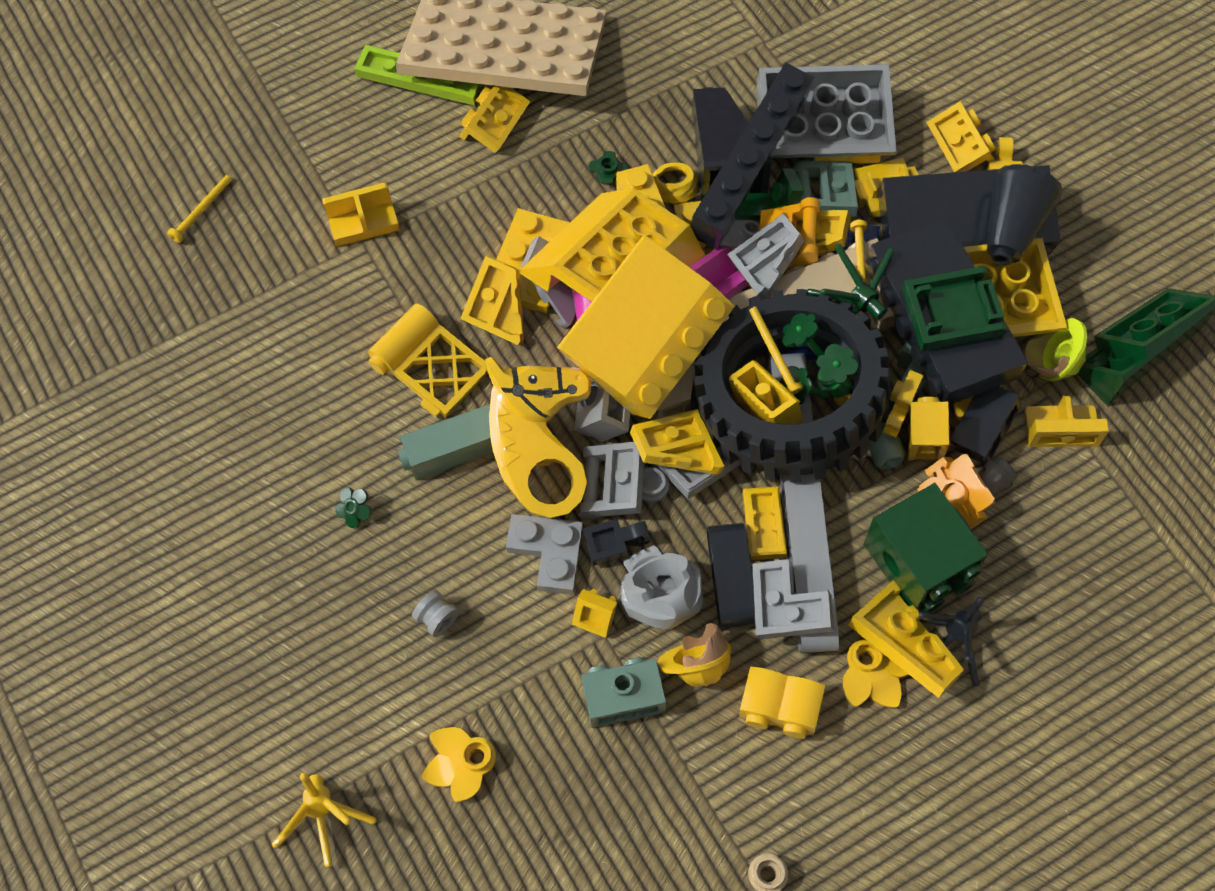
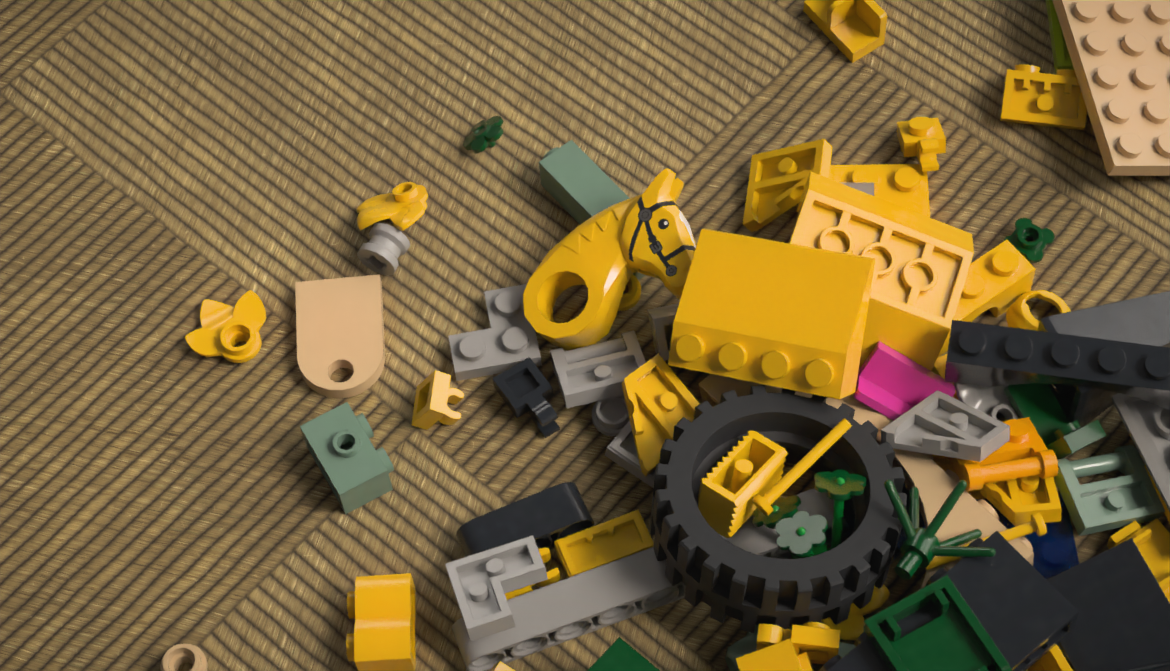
camera: 75 degrees right, 5 degrees down
(317, 805) = (147, 213): yellow plant -> none
(398, 594) = (401, 206): none -> yellow plate
(404, 346) = (695, 113): yellow piece -> none
(494, 672) = (340, 328): none -> tan tile
(497, 201) = (923, 139): none -> yellow plate
(661, 588) = (477, 467): light grey helmet -> none
(699, 659) = (405, 520): yellow piece -> none

